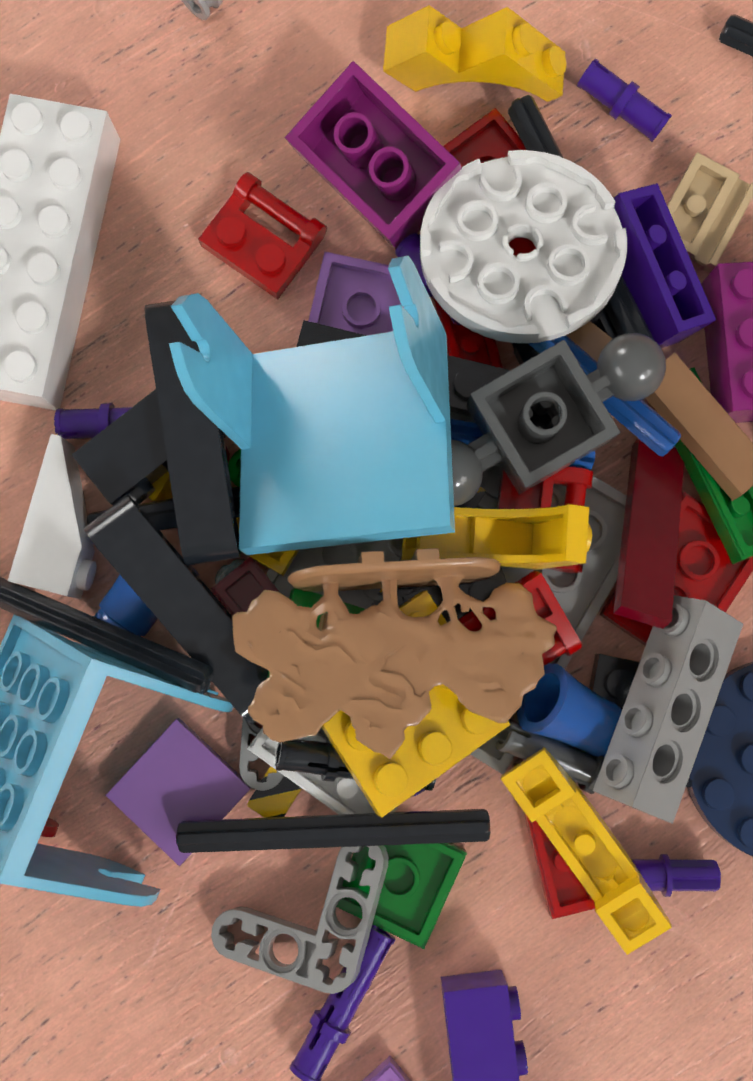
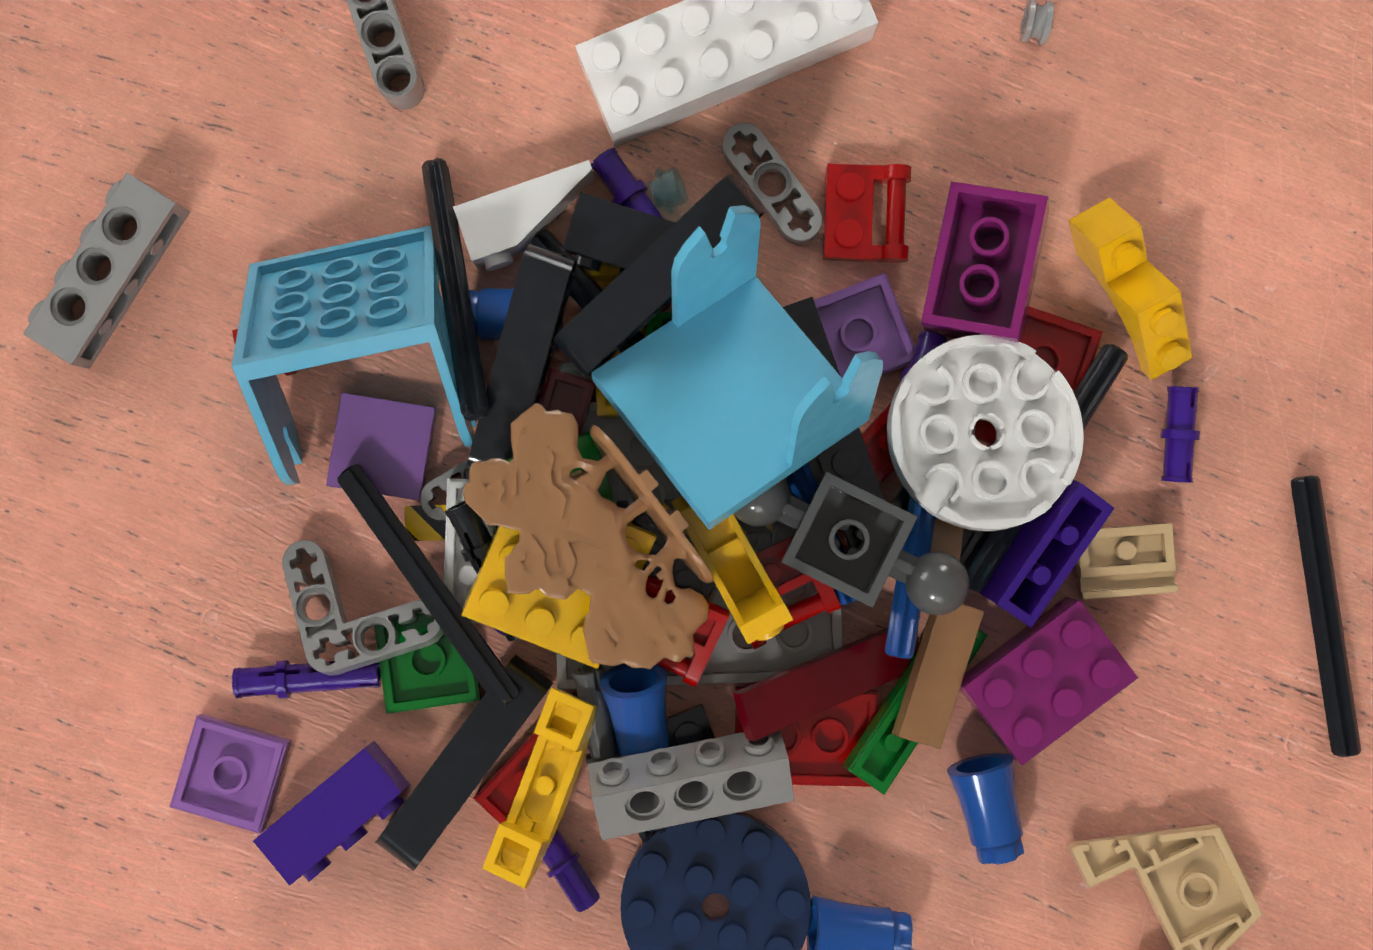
camera: 65 degrees right, 5 degrees up
(126, 386) = (668, 189): none -> clear light blue plate
(167, 282) = (741, 162): none -> light grey beam
(519, 913) = (461, 767): none -> black beam

